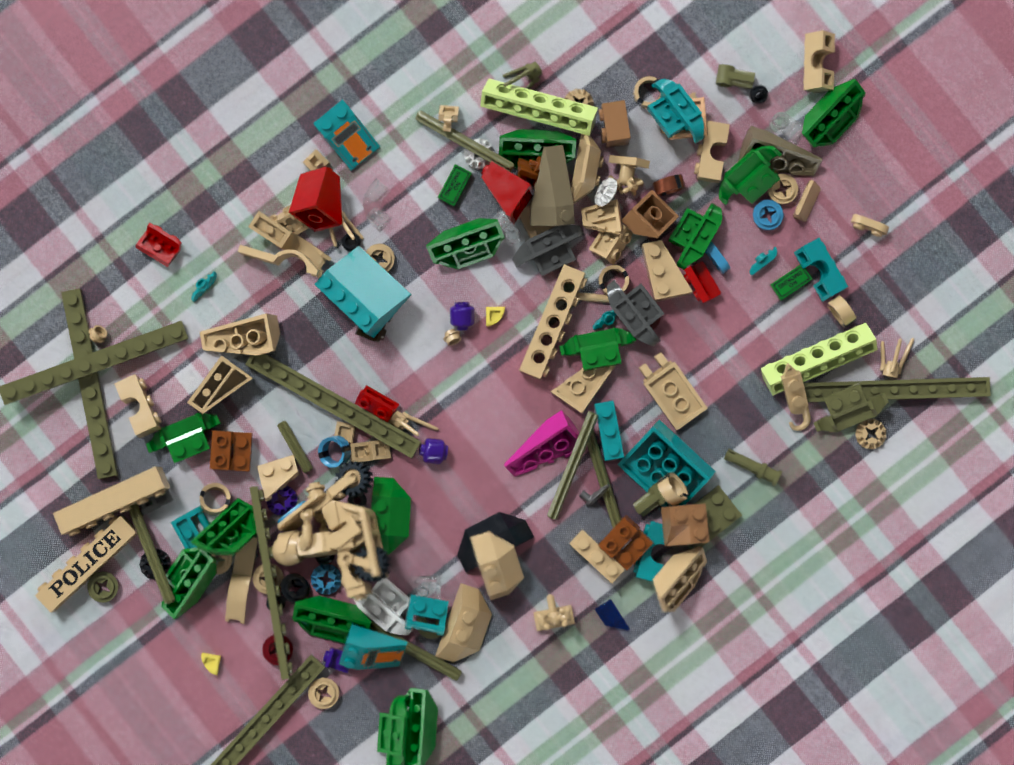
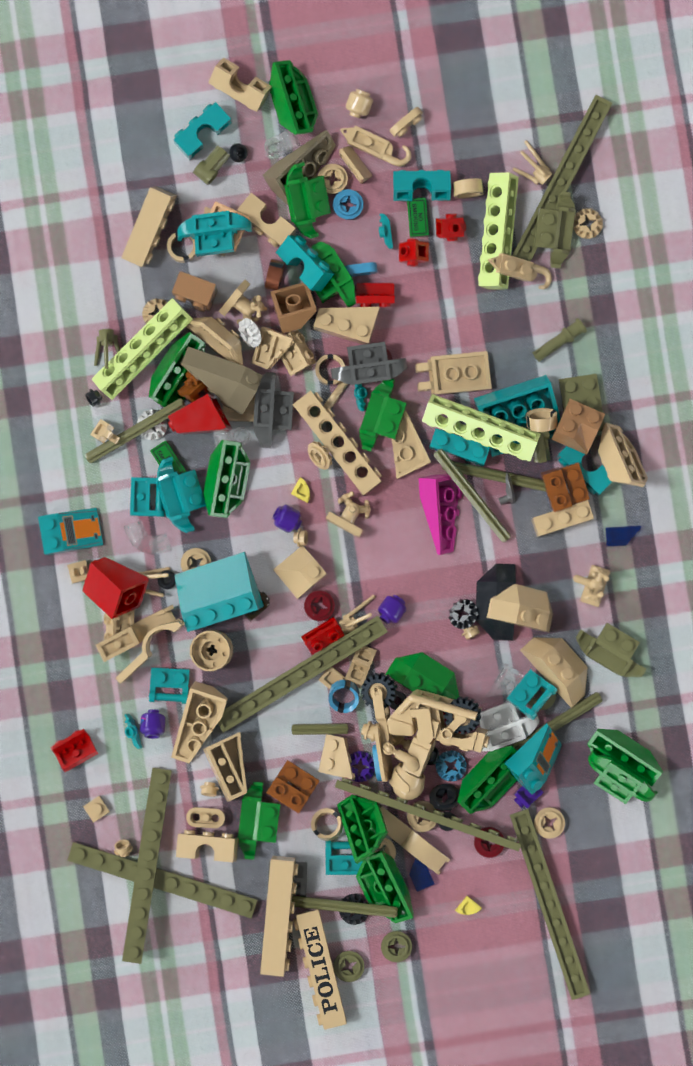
camera: 60 degrees left, 0 degrees up
(119, 292) = (96, 809): none -> tan plate
(134, 615) = (389, 953): none -> olive gear
(163, 391) = (205, 817): none -> tan plate
(189, 380) = (209, 789): none -> tan plate
(215, 606) = (420, 875): none -> clear blue tile
(218, 299) = (152, 724): none -> dark purple head
(266, 291) = (169, 679): none -> teal plate
(300, 309) = (202, 657): none -> tan wheel
(394, 381) = (314, 597): none -> dark red gear
(410, 179) = (141, 498): none -> teal plate
(422, 353) = (300, 572): none -> tan slope
(430, 210) = (179, 494): none -> teal plate
(452, 530) = (471, 632): none -> tan plate
(459, 521) = (466, 620): none -> black gear
(474, 90) = (93, 397): none -> black plate
(496, 368) = (349, 515): none -> tan piece
(505, 664) = (612, 650): none -> olive plate
(533, 312) = (319, 455): none -> tan gear
(643, 446) = (490, 424): none -> yellowish green brick
(650, 53) = (149, 226): none -> tan wedge
(692, 218) = (316, 271): none -> teal arch
(757, 295) = (413, 252): none -> red brick
(776, 54) = (212, 118): none -> teal arch
(798, 315) = (450, 227): none -> red brick
(832, 208) = (374, 145): none -> tan plate
(862, 174) = (359, 103): none -> tan head

